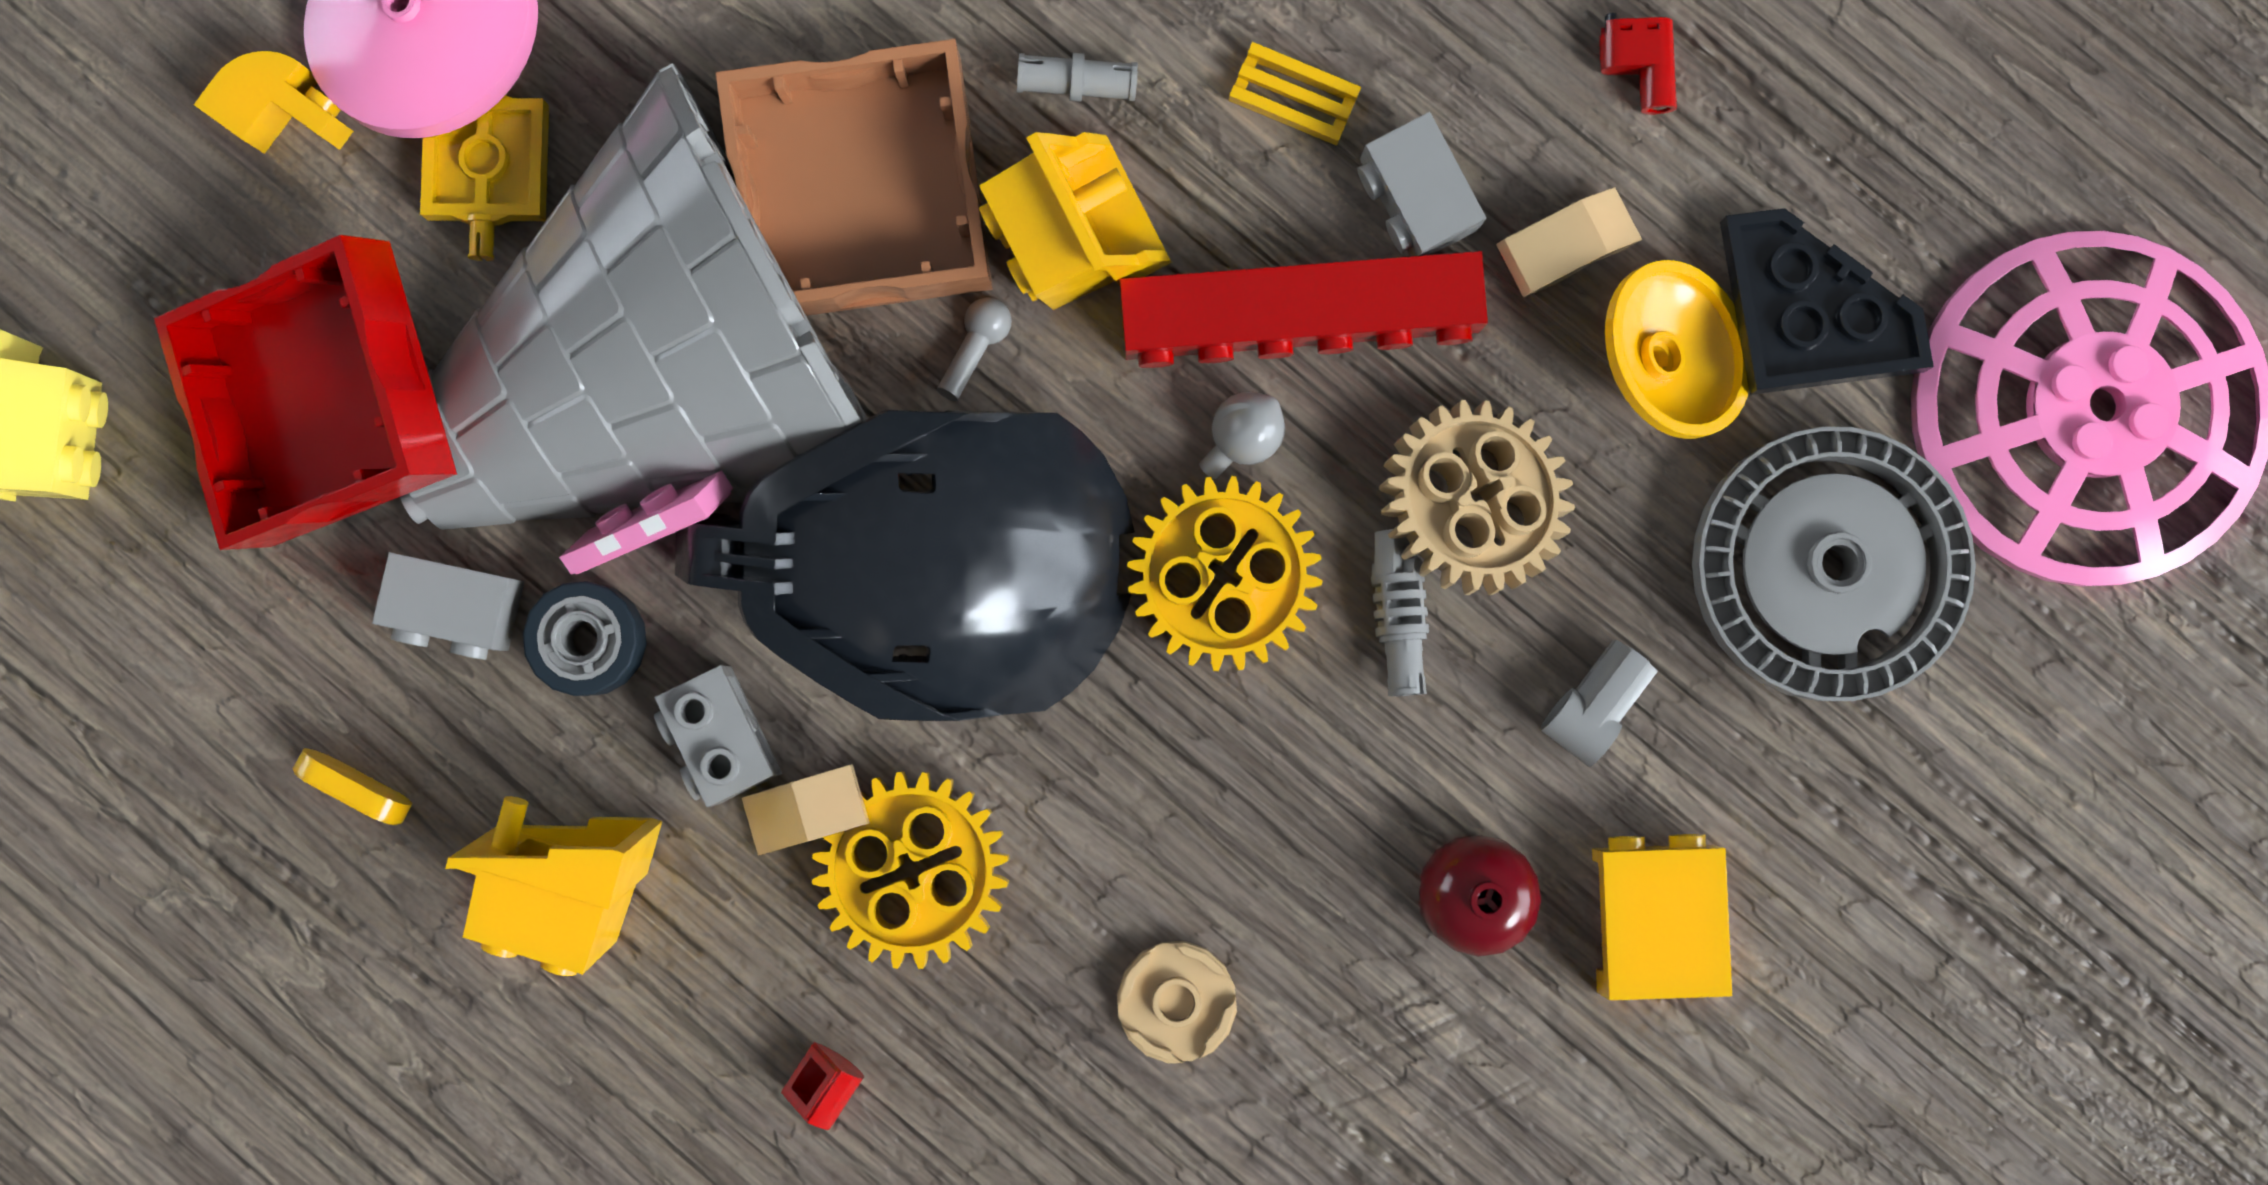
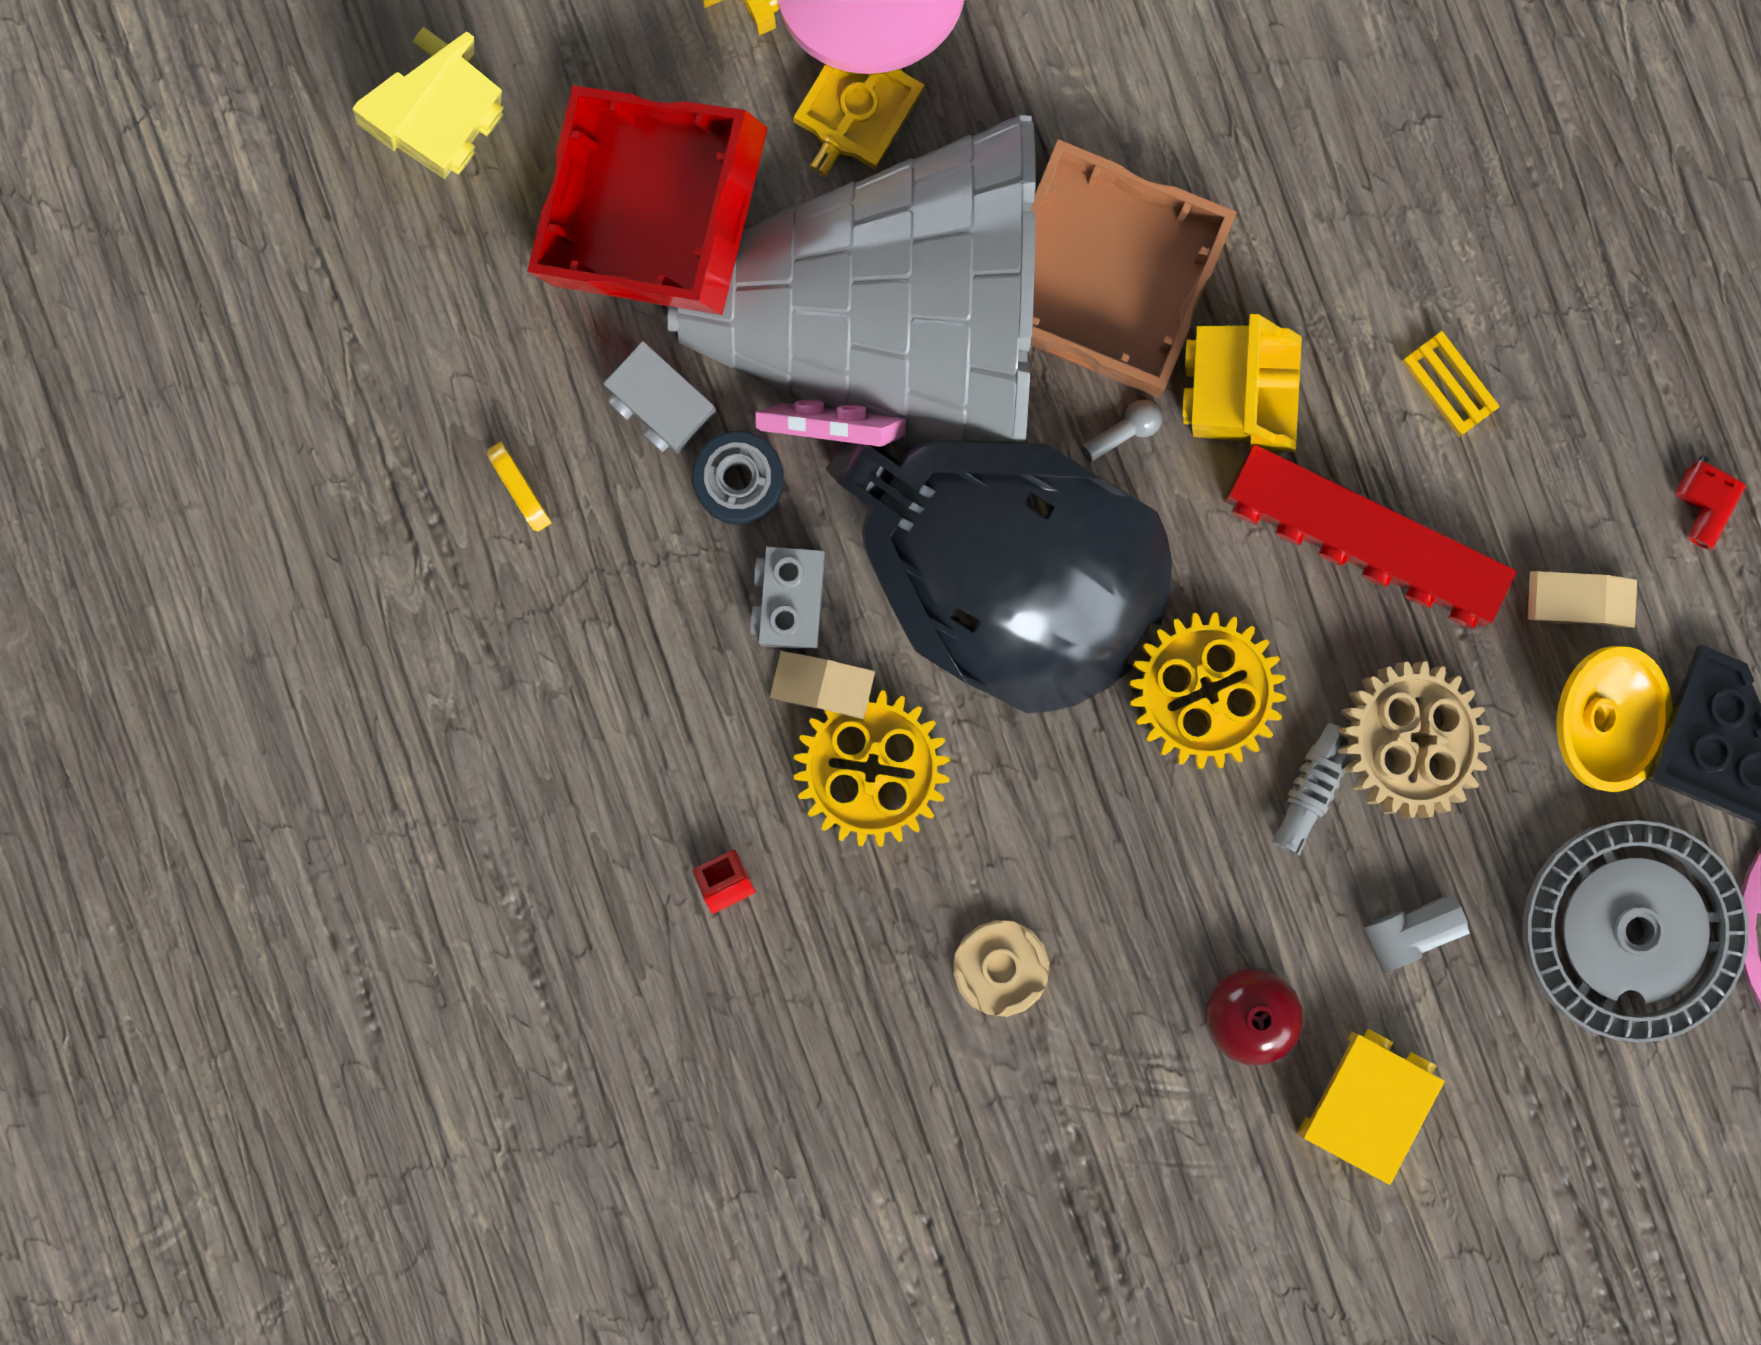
camera: 20 degrees right, 0 degrees up
(554, 888) = (625, 638): yellow piece -> none
(1077, 77) = (1304, 284): light grey pin -> none
(1245, 431) = (1279, 600): light grey piece -> none
(1420, 188) = (1499, 502): light grey brick -> none

